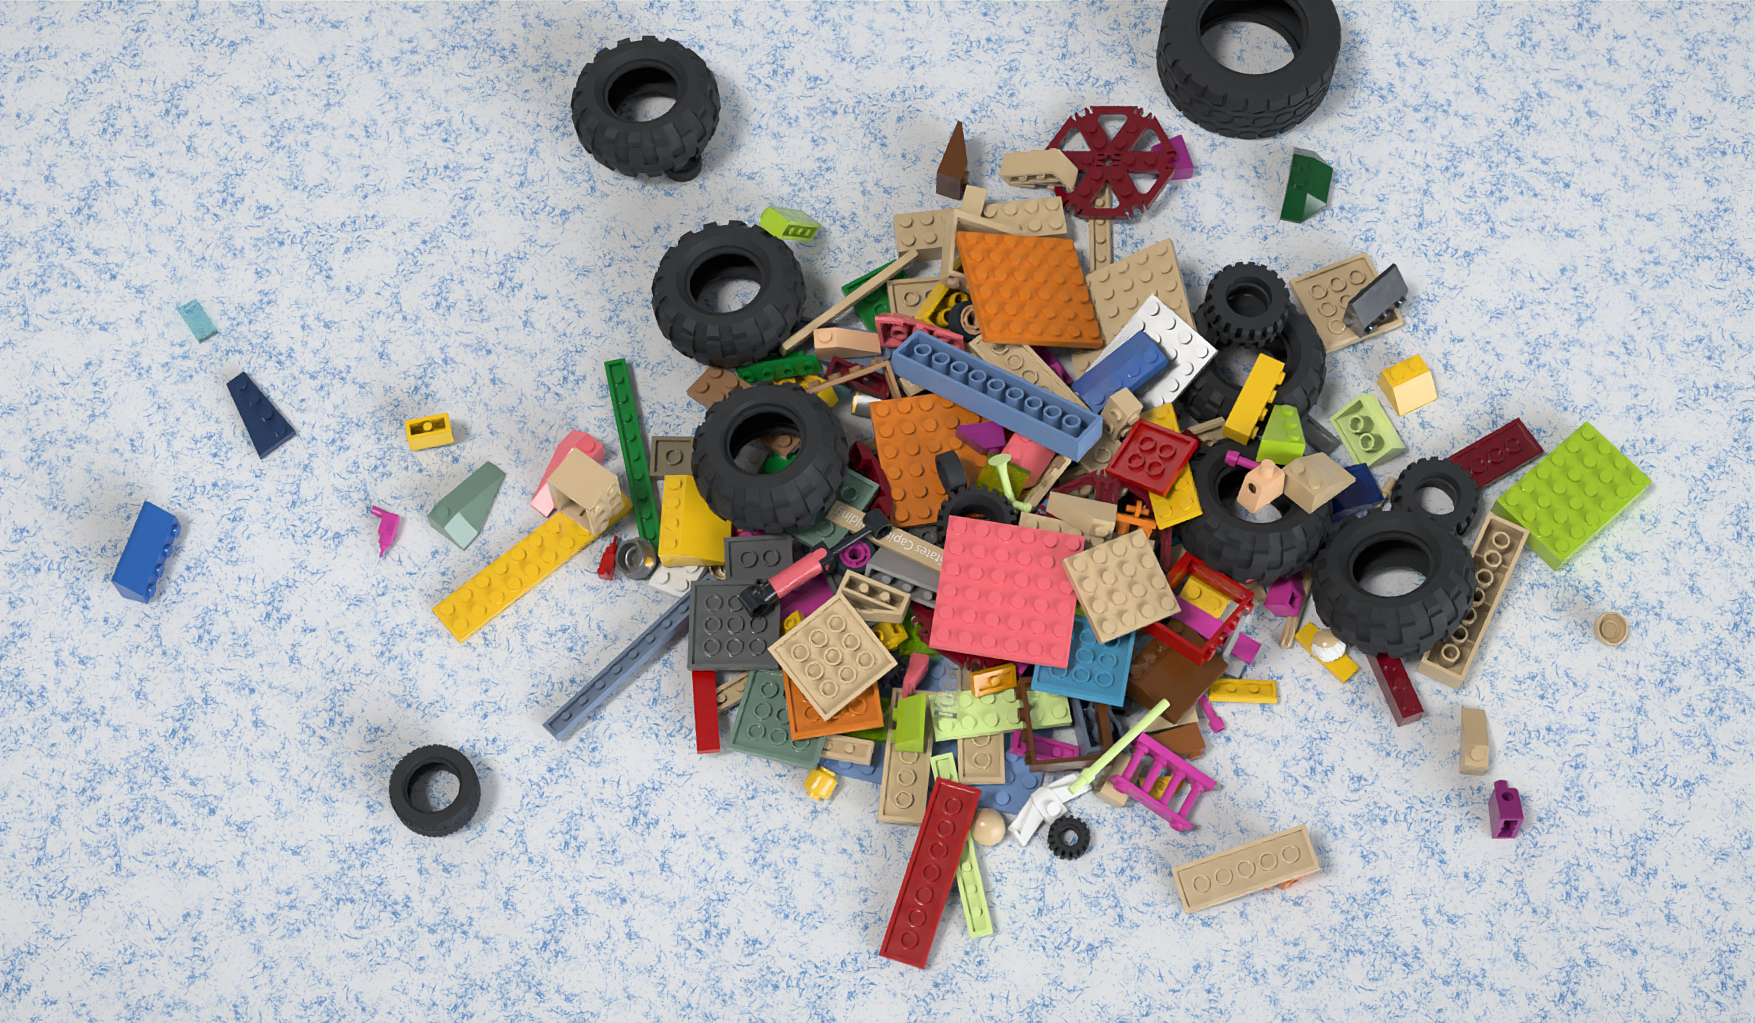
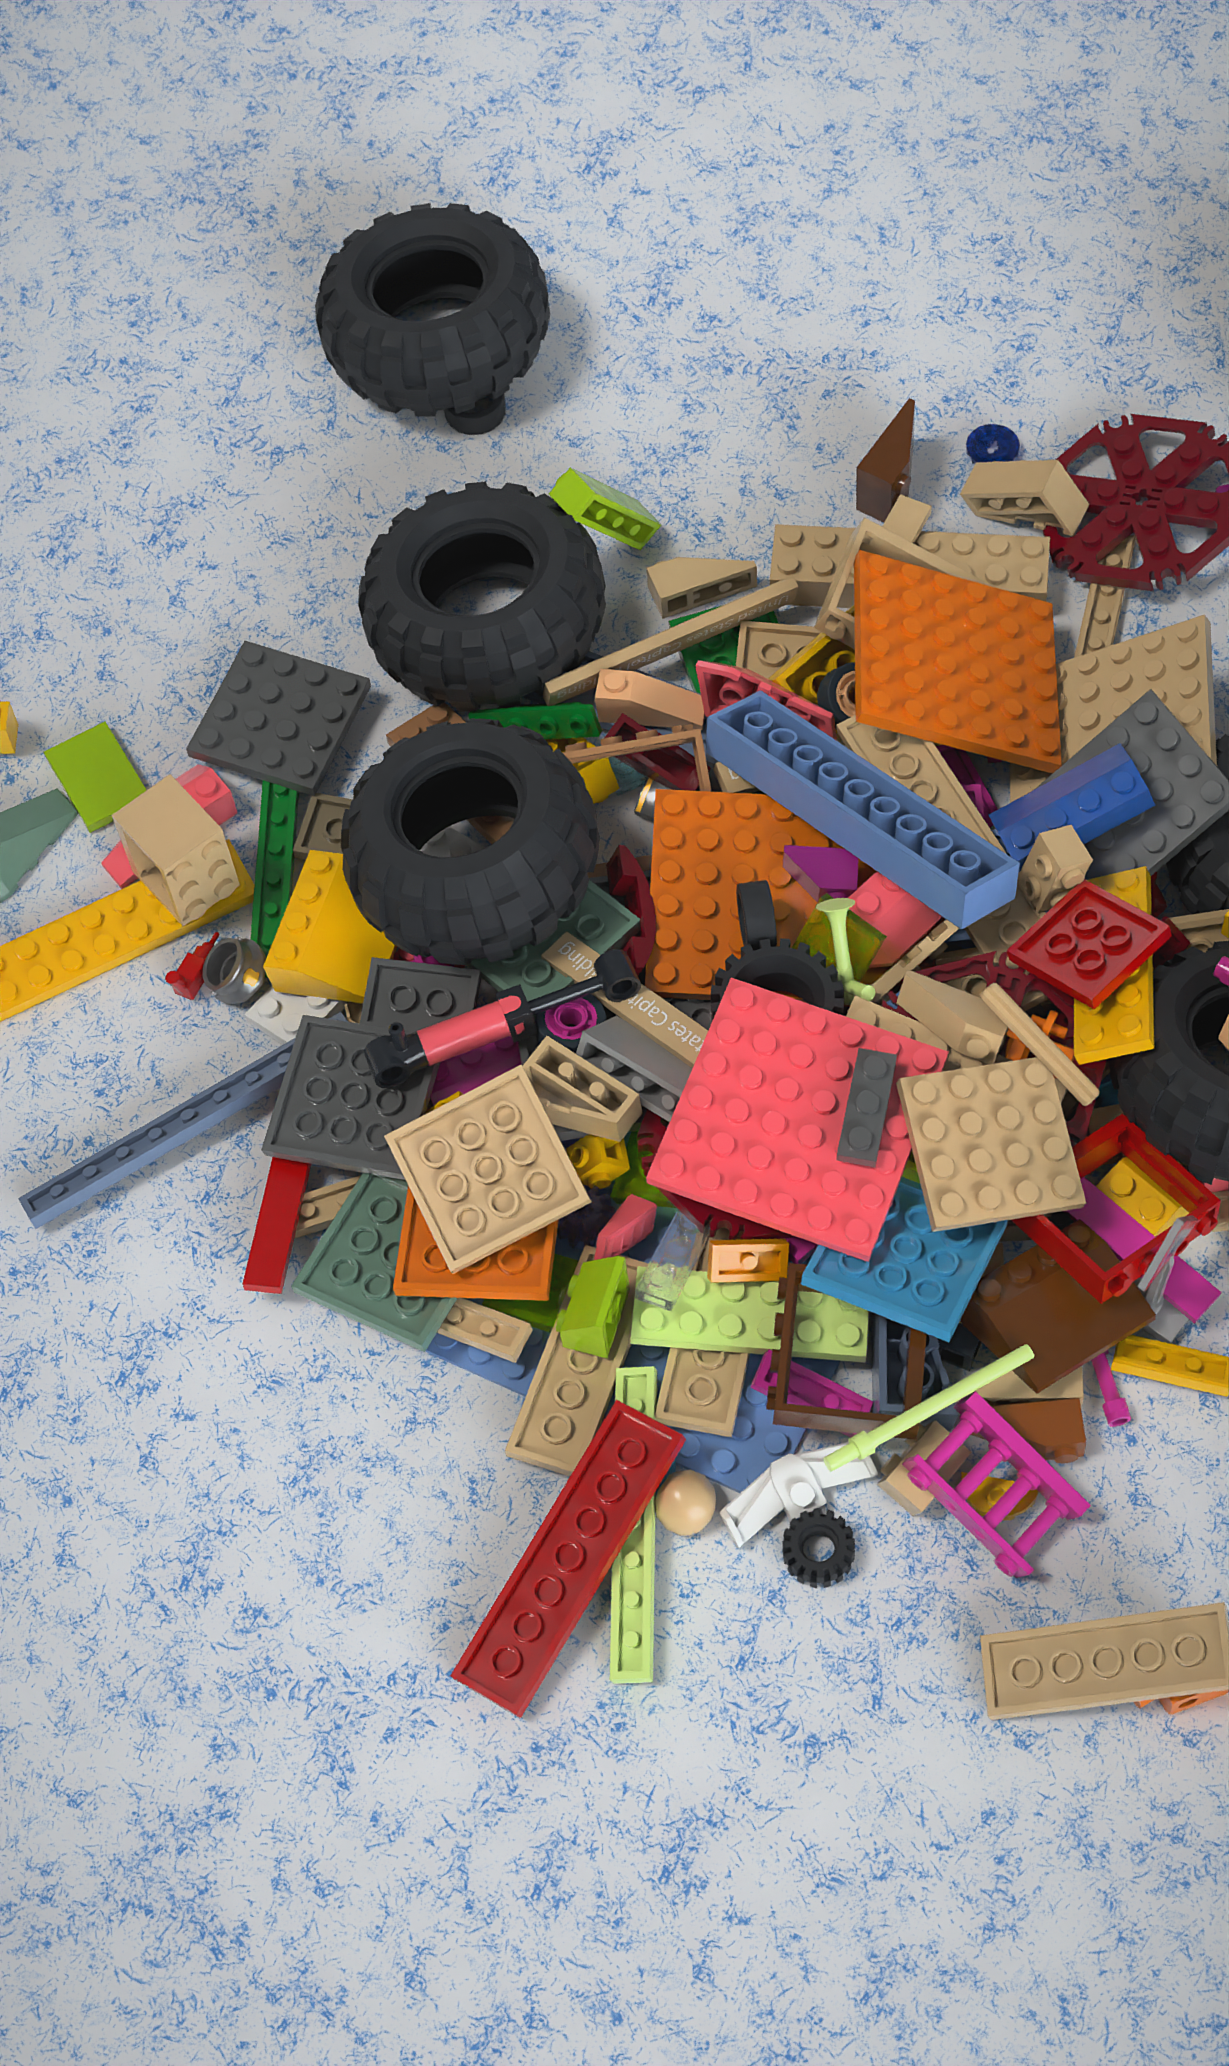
camera: 20 degrees right, 5 degrees down
(511, 448) = (95, 775): none -> lime tile
(618, 392) = (279, 718): none -> dark grey plate
(820, 783) = (429, 1376): yellow head -> none
(851, 258) = (692, 582): none -> tan slope
(1018, 136) = (985, 436): none -> clear blue gear
(1047, 579) = (866, 1107): none -> dark grey plate
(1136, 522) = (1039, 1044): none -> tan axle

